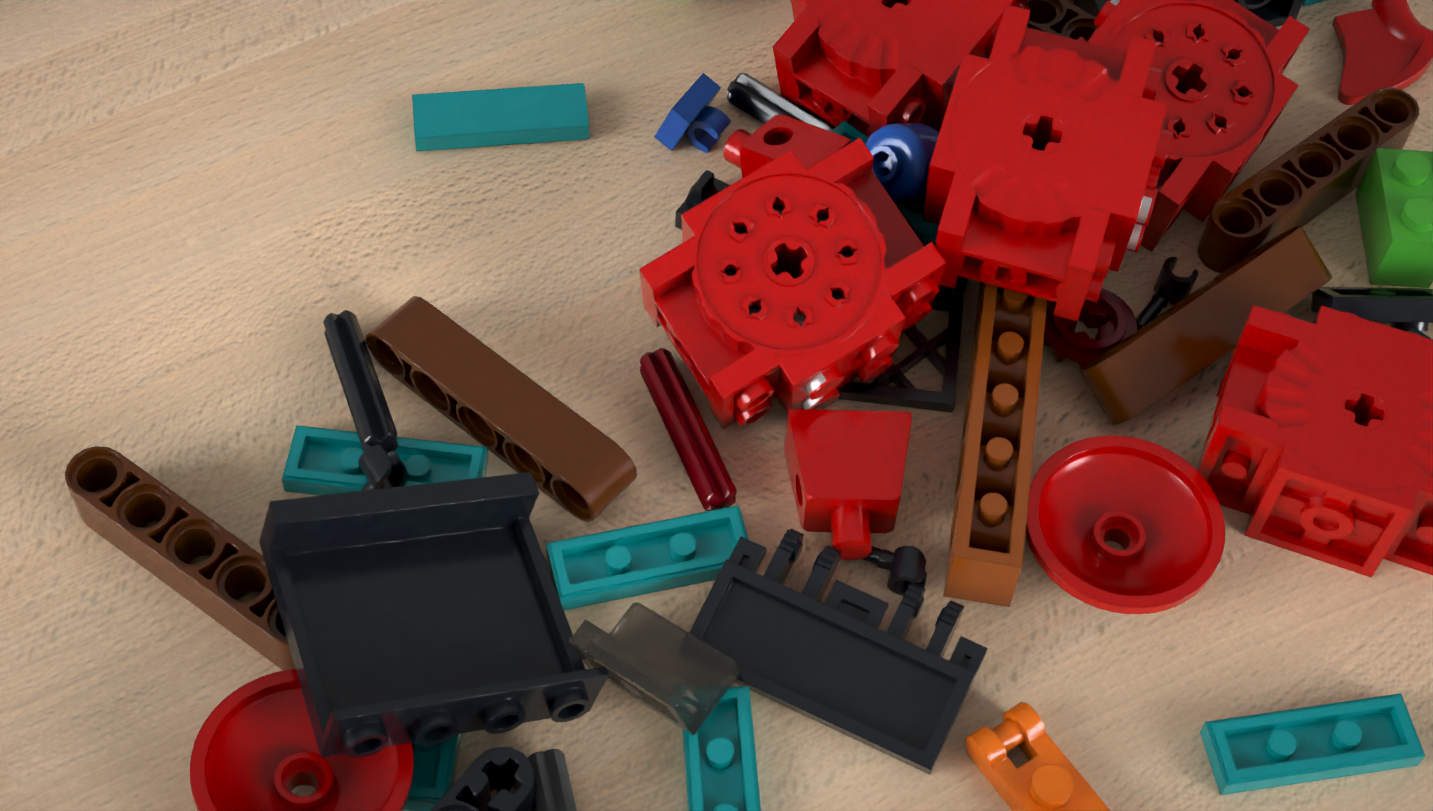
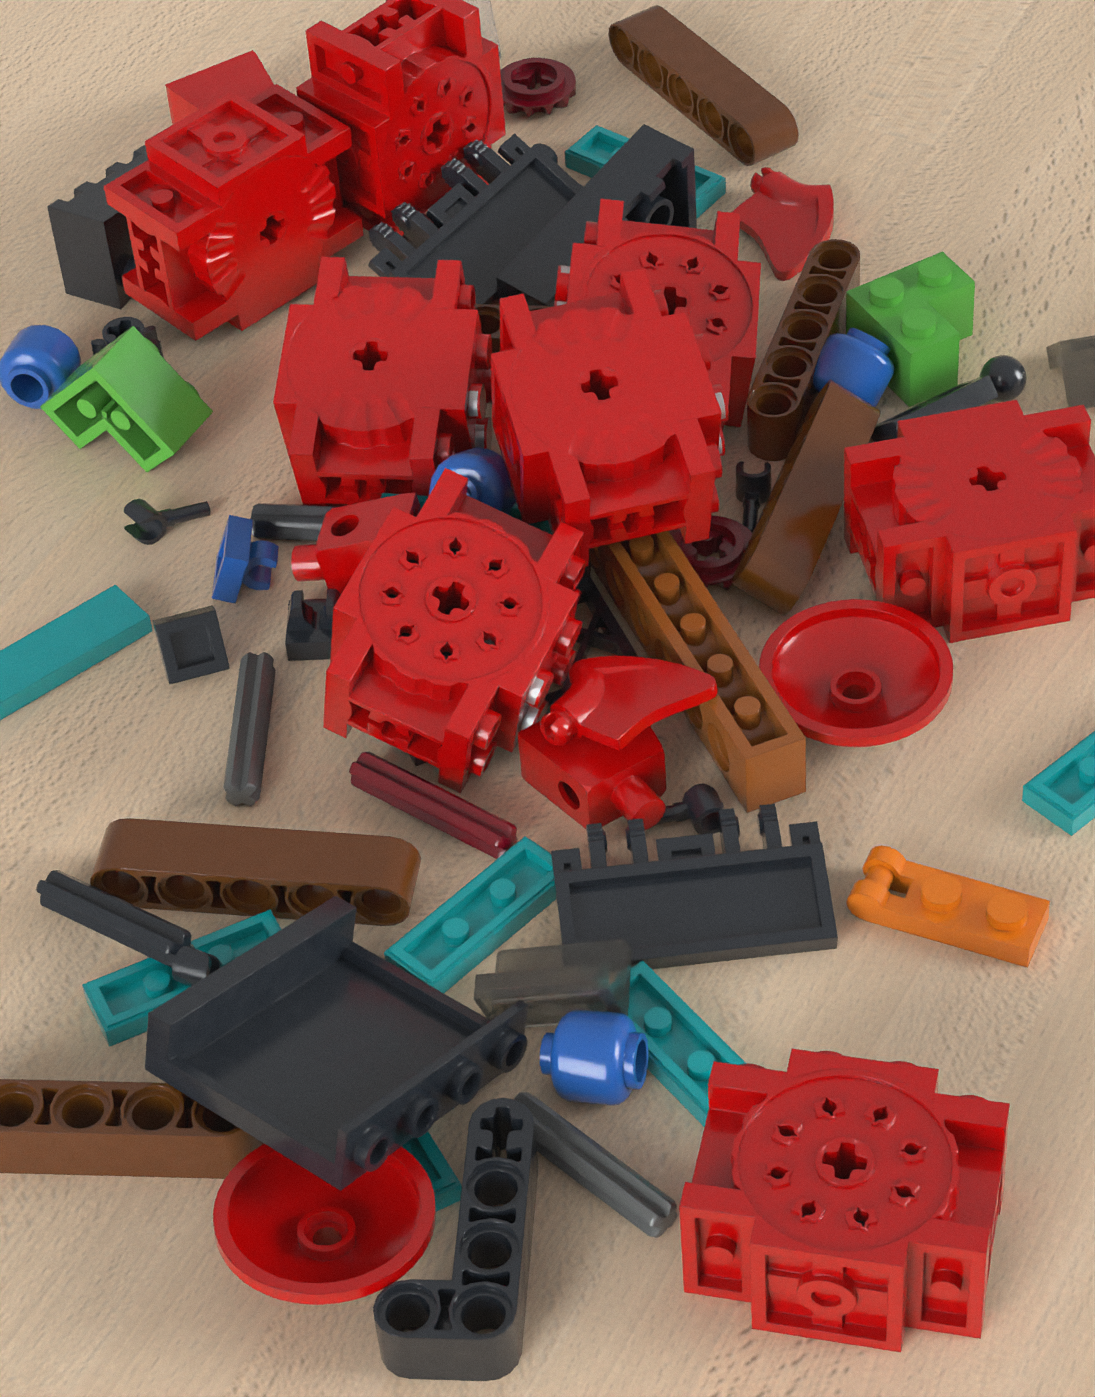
camera: 25 degrees left, 10 degrees down
(594, 272) = (249, 729): none -> dark grey axle
(599, 170) = (191, 644): none -> black tile
(635, 757) = (595, 1057): none -> blue head
(652, 44) = (152, 524): none -> black hand
(892, 432) = (622, 696): none -> red arm
(1337, 224) = (855, 363): none -> blue head

